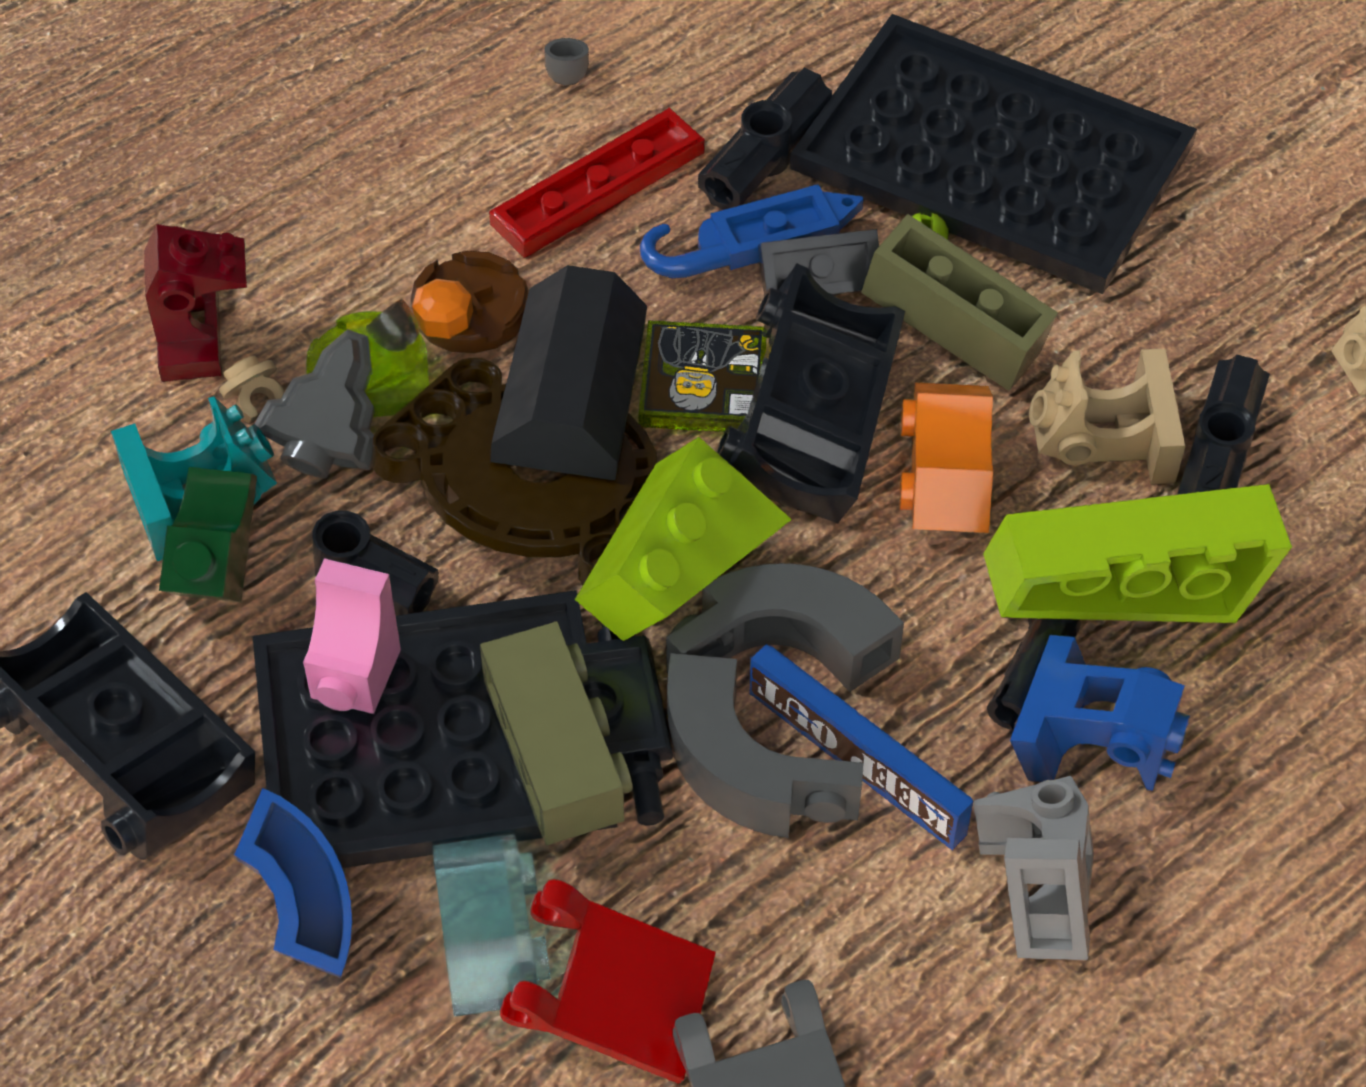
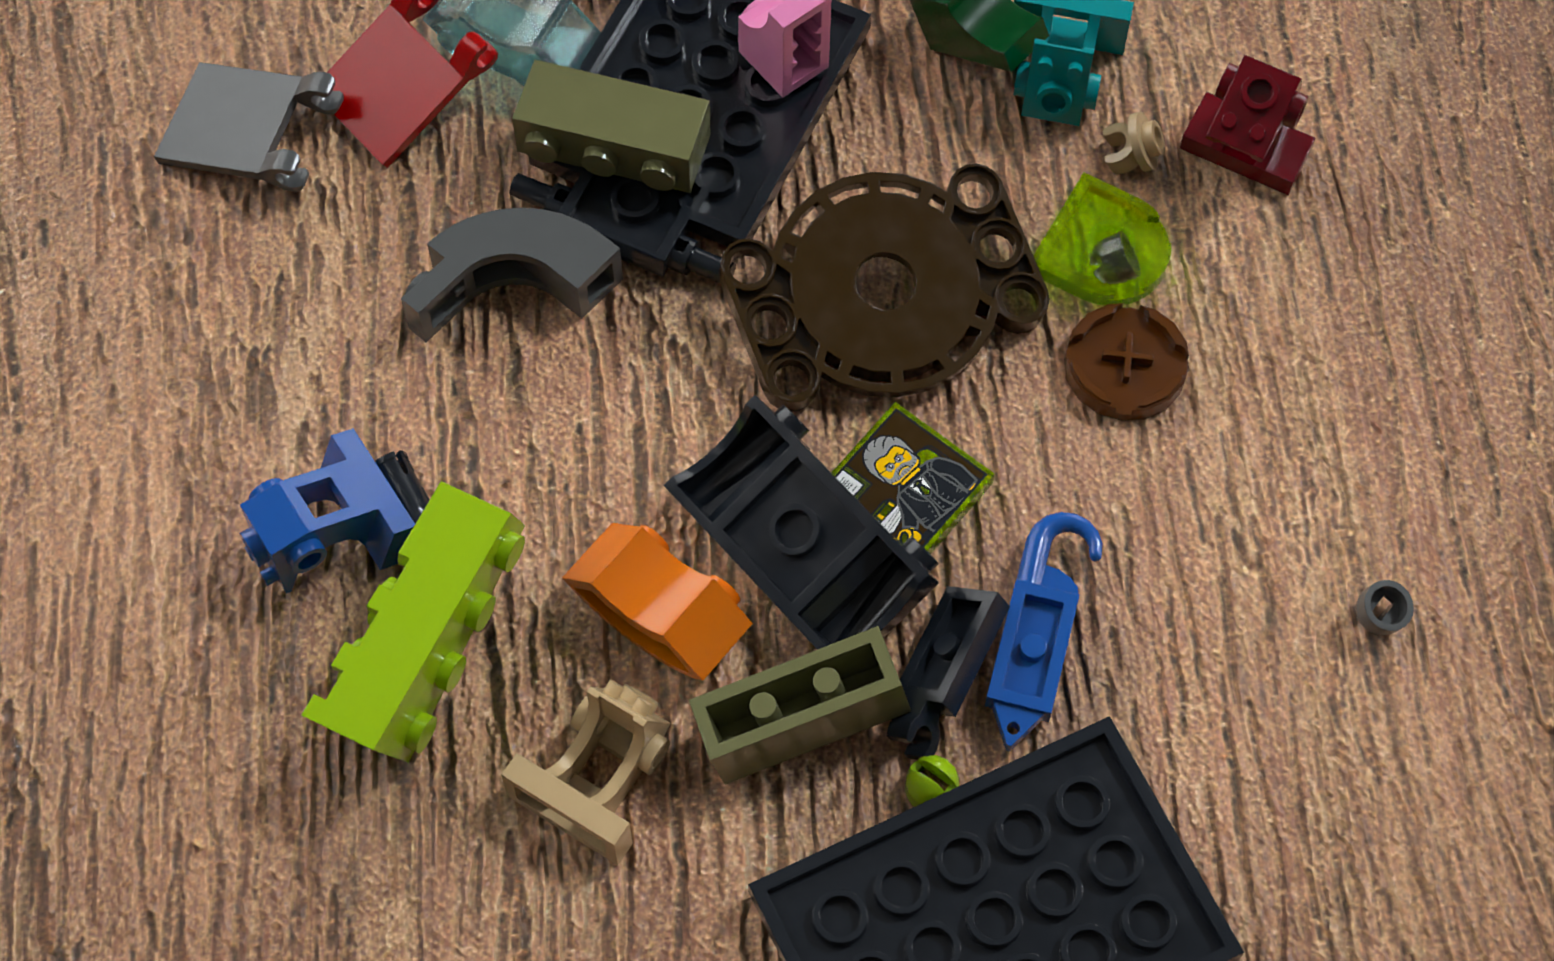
camera: 125 degrees right, 10 degrees up
(326, 412) = (1056, 163): dark grey rock -> none
(410, 578) = (877, 126): black piece -> none
(443, 308) = (1113, 311): orange tile -> none
(571, 375) = (957, 357): black piece -> none
(596, 182) = (1206, 552): red tile -> none
(676, 539) = (705, 302): lime wedge -> none
(764, 140) = (1161, 746): black piece -> none
(798, 609) = (599, 393): dark grey arch -> none
(853, 738) = (450, 345): blue tile -> none
(1045, 842) = (213, 373): light grey tile -> none
(1225, 426) = (521, 873): black piece -> none

